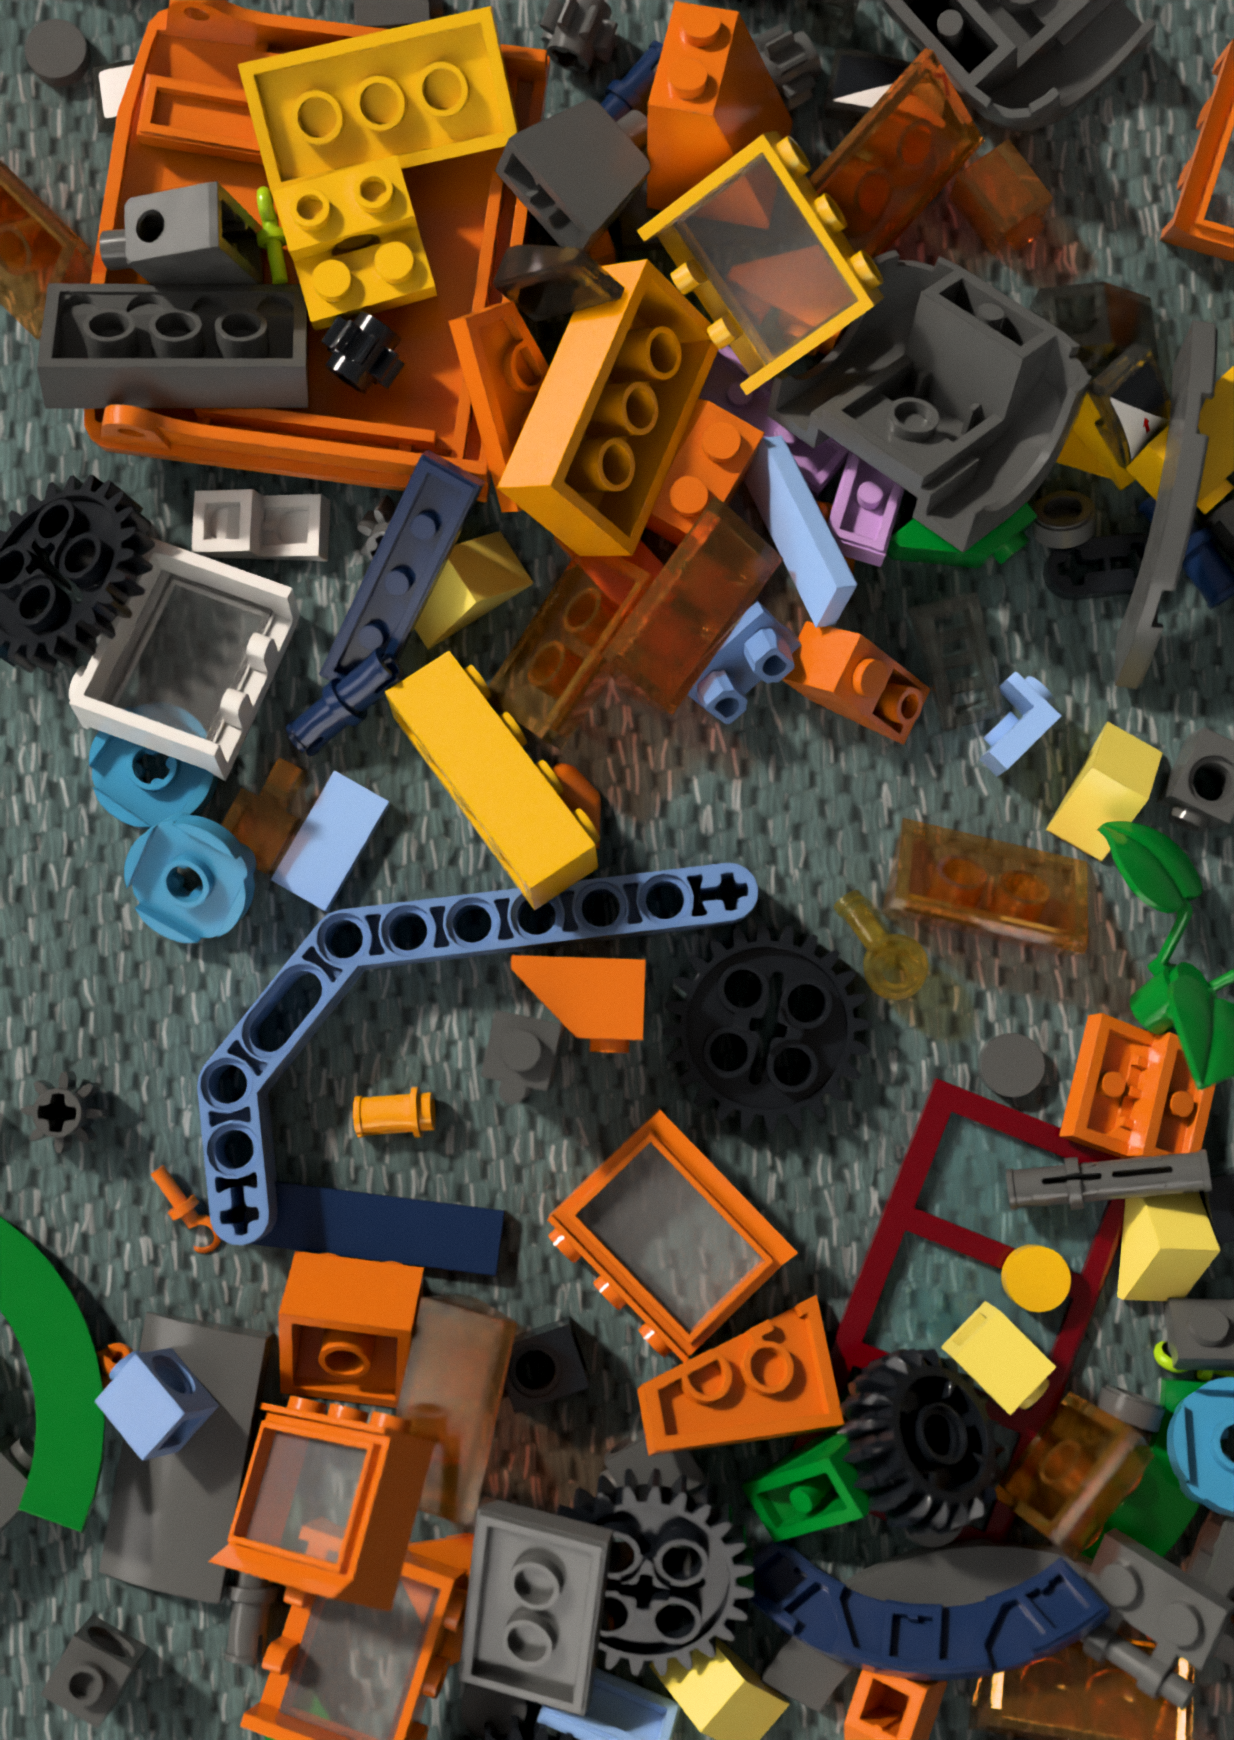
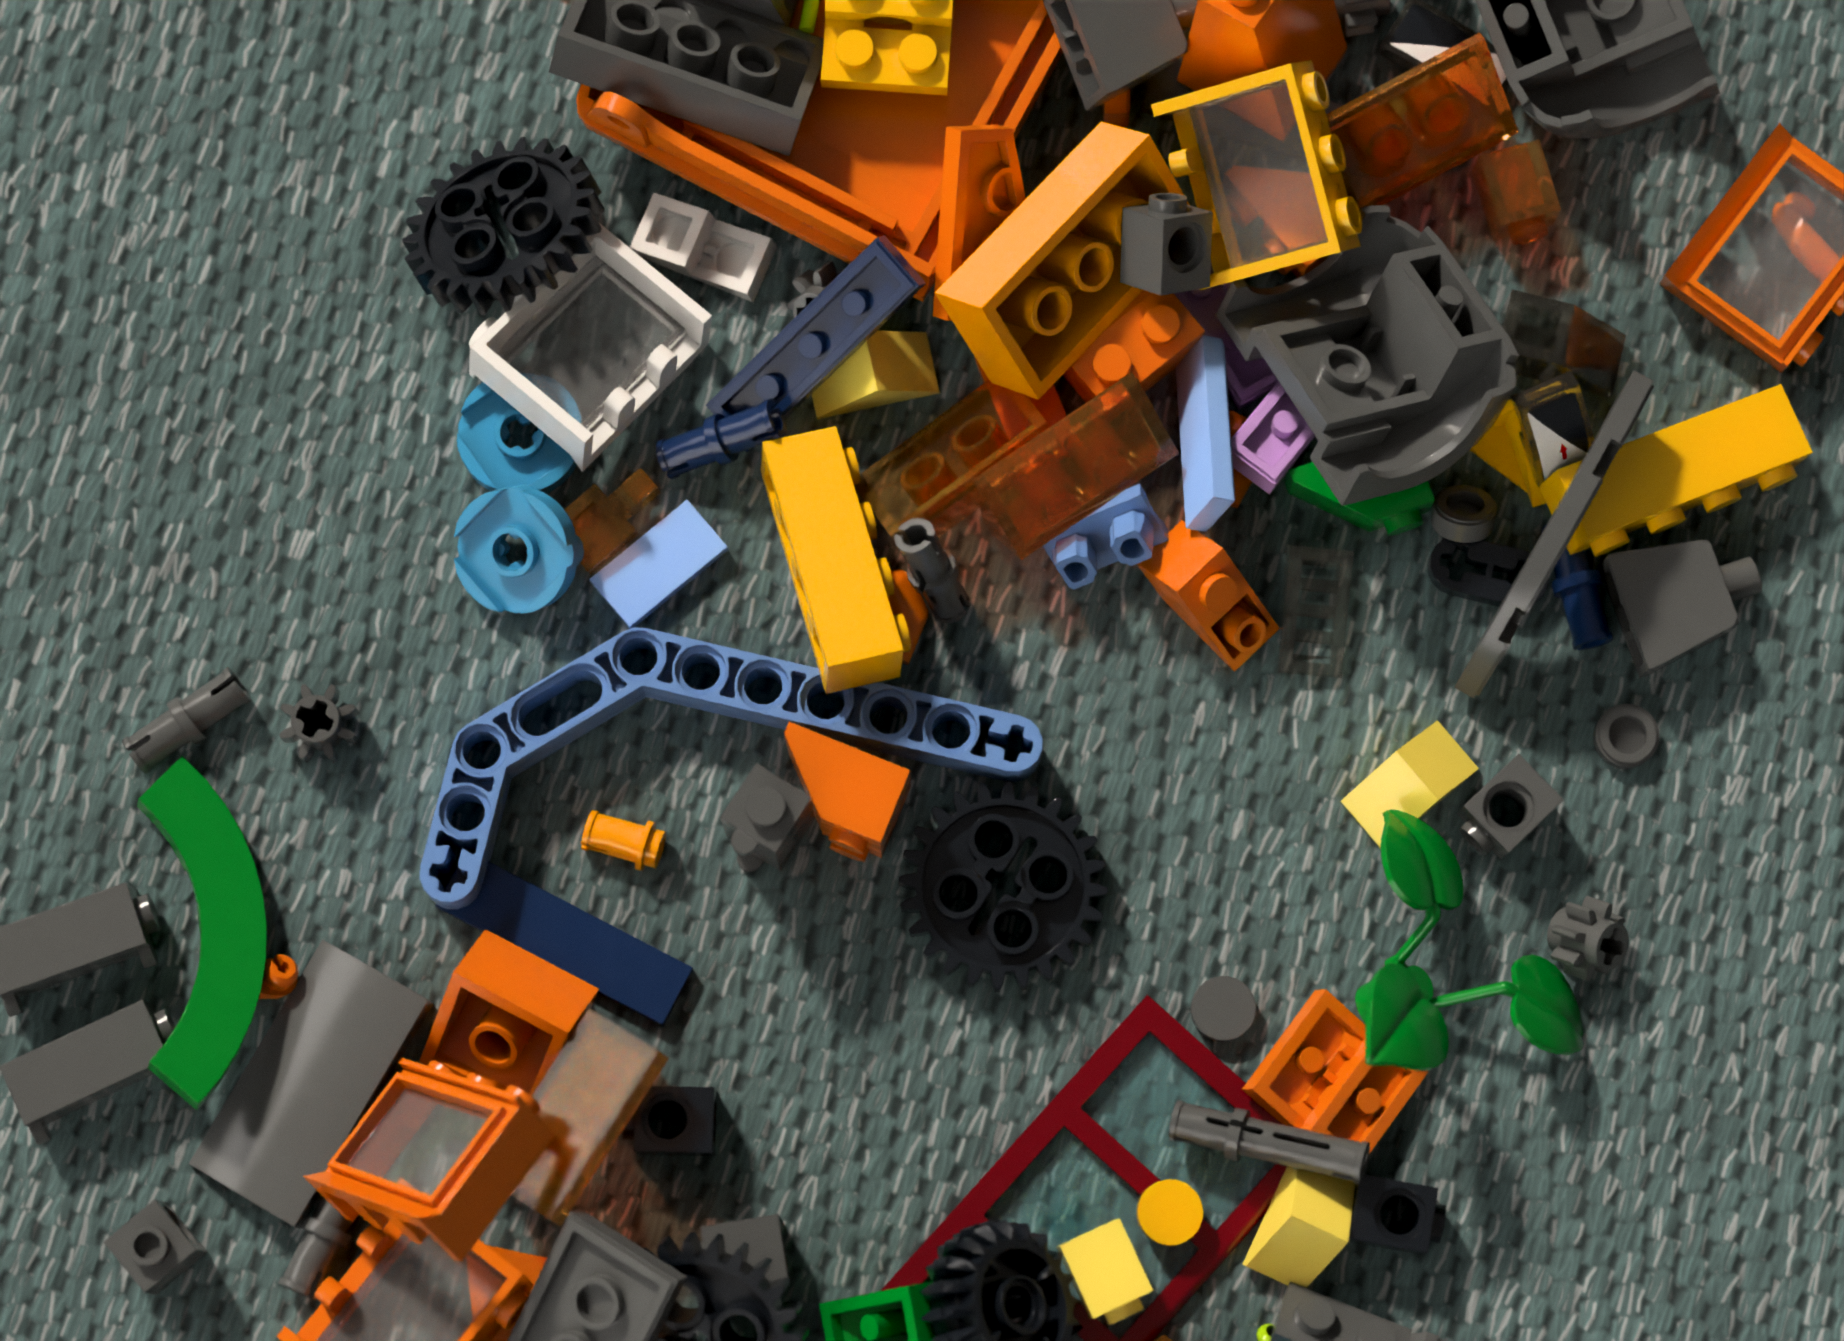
camera: 20 degrees right, 5 degrees down
(155, 1402) = (307, 1017): medium blue brick -> none
(183, 1206) = (394, 856): orange hand -> none
(362, 352) = (858, 123): black gear -> none
(553, 280) = (1056, 122): clear smoke slope -> none
(591, 754) = (932, 570): none -> dark grey pin
(668, 1237) = (838, 1045): window -> none
(701, 362) = (1166, 245): none -> dark grey brick
(747, 1390) = (863, 1211): orange wing -> none
(884, 950) = (1140, 855): clear yellow bar -> none
(989, 889) = (1260, 833): clear orange slope -> none
(1015, 736) = (1340, 700): light blue bracket -> none

